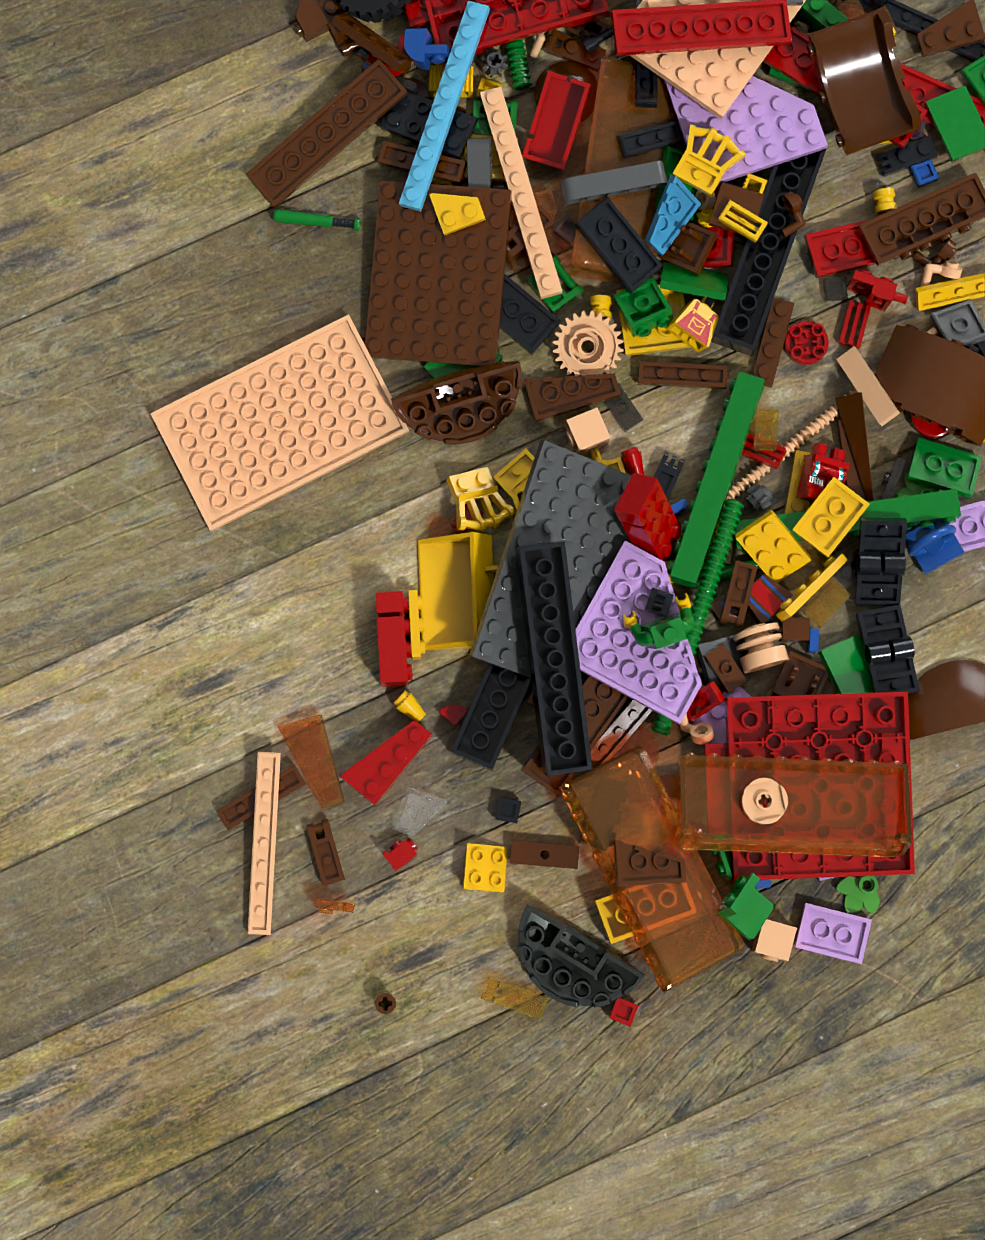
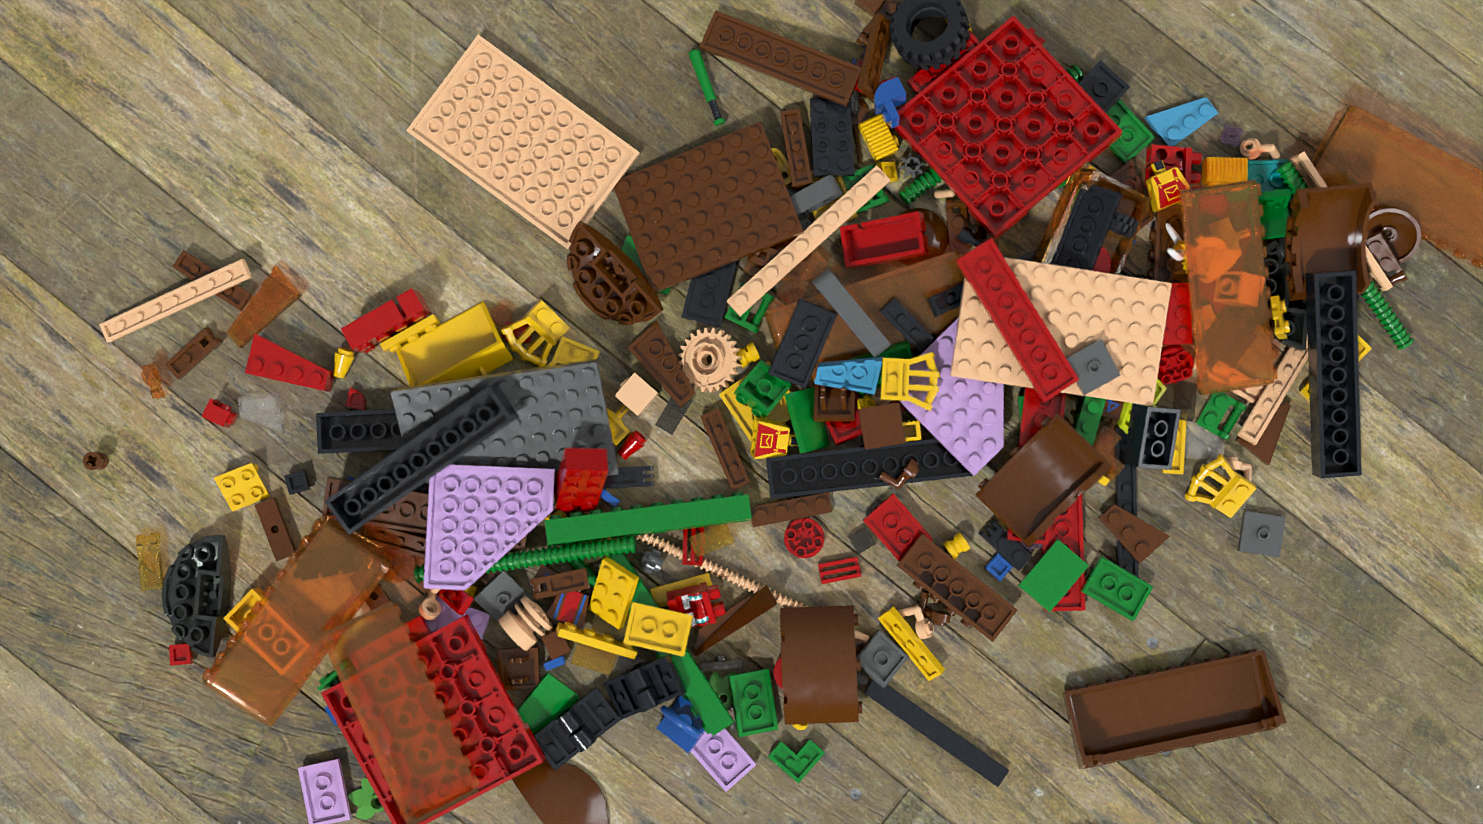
camera: 70 degrees right, 5 degrees up
(444, 106) = (848, 141): medium azure plate -> none
(456, 211) = (762, 196): yellow wing -> none
(565, 229) = (801, 292): dark grey tile -> none
(646, 867) = (287, 617): reddish brown wing -> none
(659, 602) = (515, 522): black tile -> none
(664, 630) = (490, 539): green torso -> none
(725, 668) = (493, 601): reddish brown plate -> none
(746, 907) = (301, 714): green bracket -> none
(753, 237) = (872, 439): yellow tile -> none
(754, 810) = (389, 699): light nougat plate -> none
(774, 941) = (294, 748): light nougat head -> none
(867, 383) = (788, 607): light nougat tile -> none
(878, 291) = (873, 577): red plate -> none

